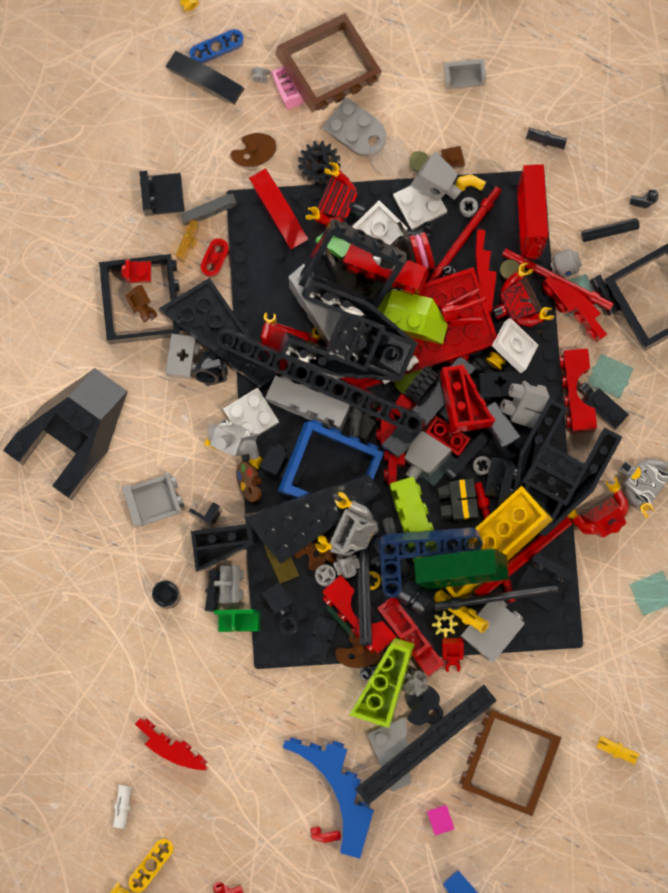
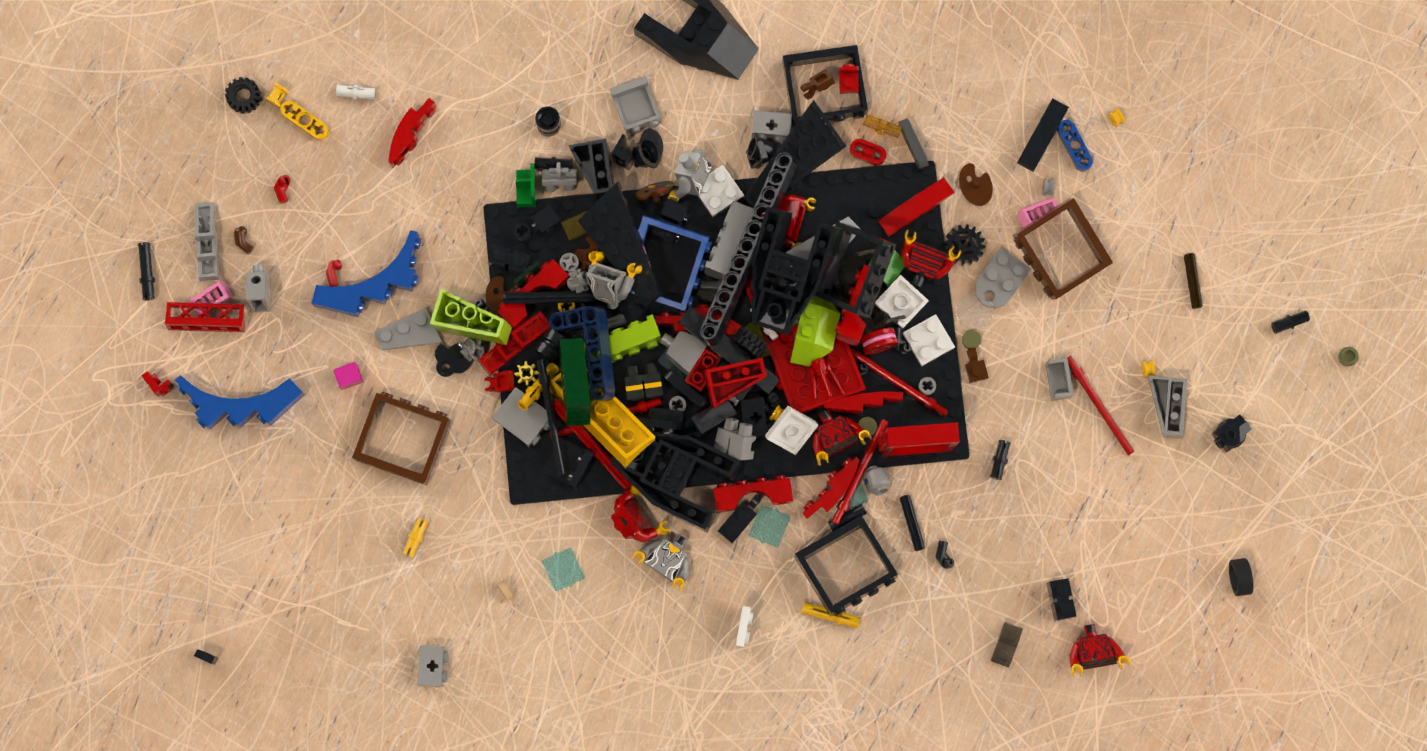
camera: 80 degrees right, 0 degrees up
(161, 193) = (927, 99): black bracket -> none
(203, 487) = (648, 150): none -> black piece
(425, 744) = (416, 359): black plate -> none
(436, 178) = (951, 352): light grey torso -> none
(459, 55) = (1078, 374): none -> red bar
(470, 180) = (953, 386): yellow arm -> none

